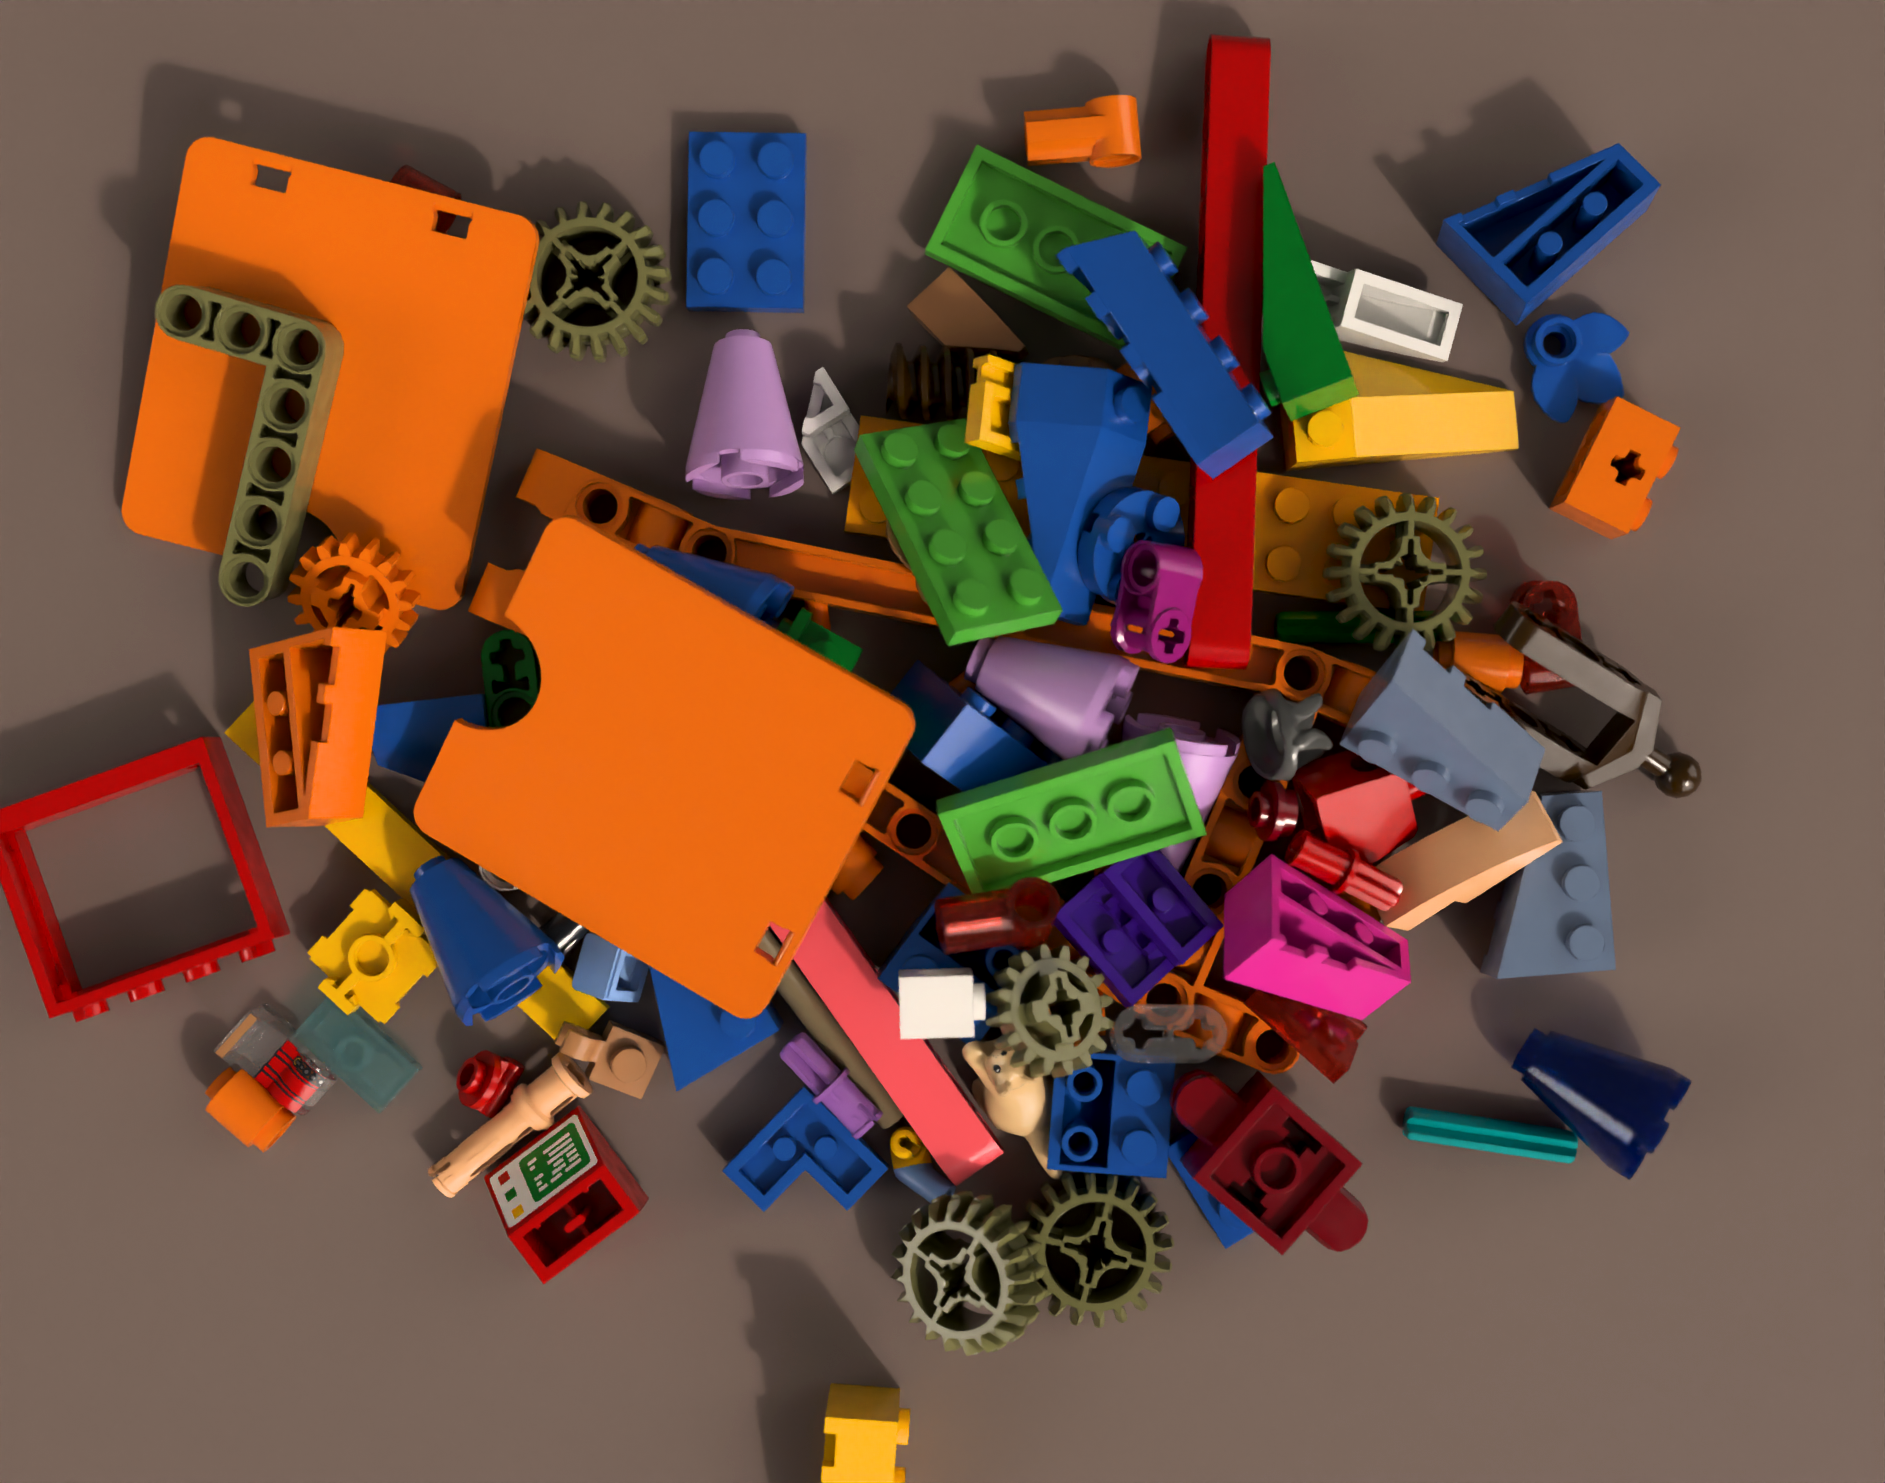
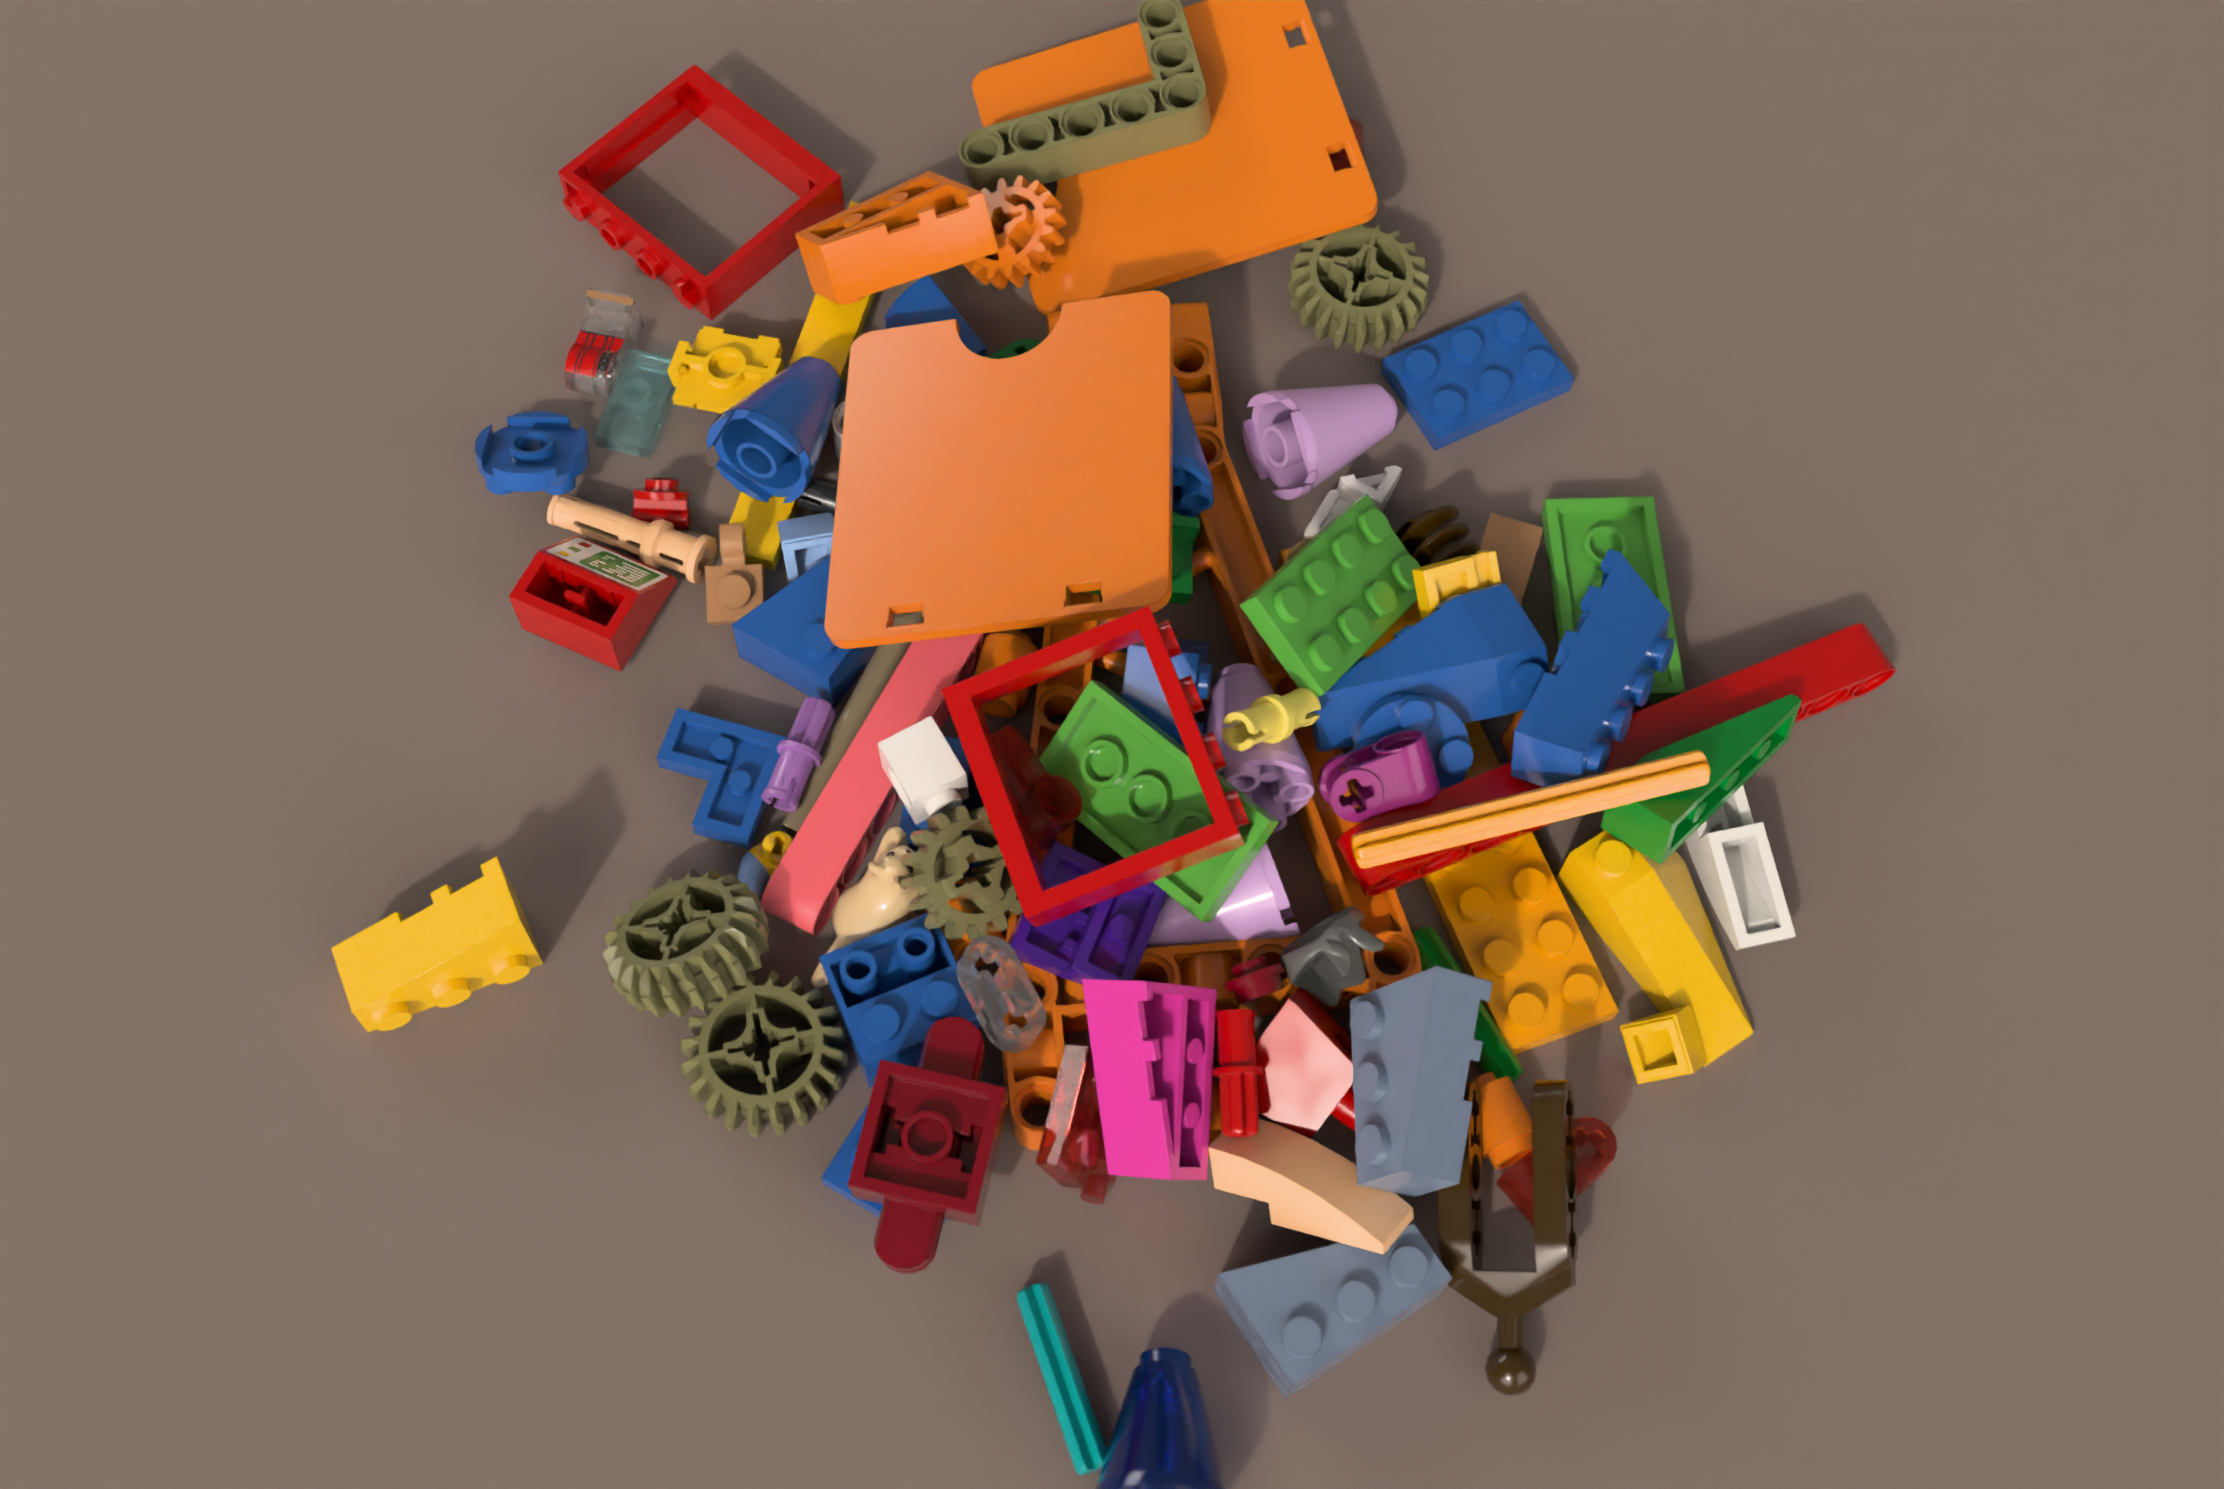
camera: 50 degrees right, 25 degrees down
(247, 1109) = (548, 341): orange brick -> none
(404, 1187) = (532, 454): none -> blue plate
(1028, 963) = (1037, 901): none -> red window
(1069, 677) = (1271, 719): none -> light yellow pin
(1099, 132) = (1725, 584): orange piece -> none
(1271, 490) = (1530, 809): none -> light orange axle
(1406, 545) = (1572, 968): olive gear -> none
(1490, 477) = (1664, 1045): none -> yellow slope
(1547, 232) = (1910, 977): blue wedge -> none
(1581, 368) = (1814, 1080): blue plate -> none
(1589, 486) = (1776, 1134): orange brick -> none

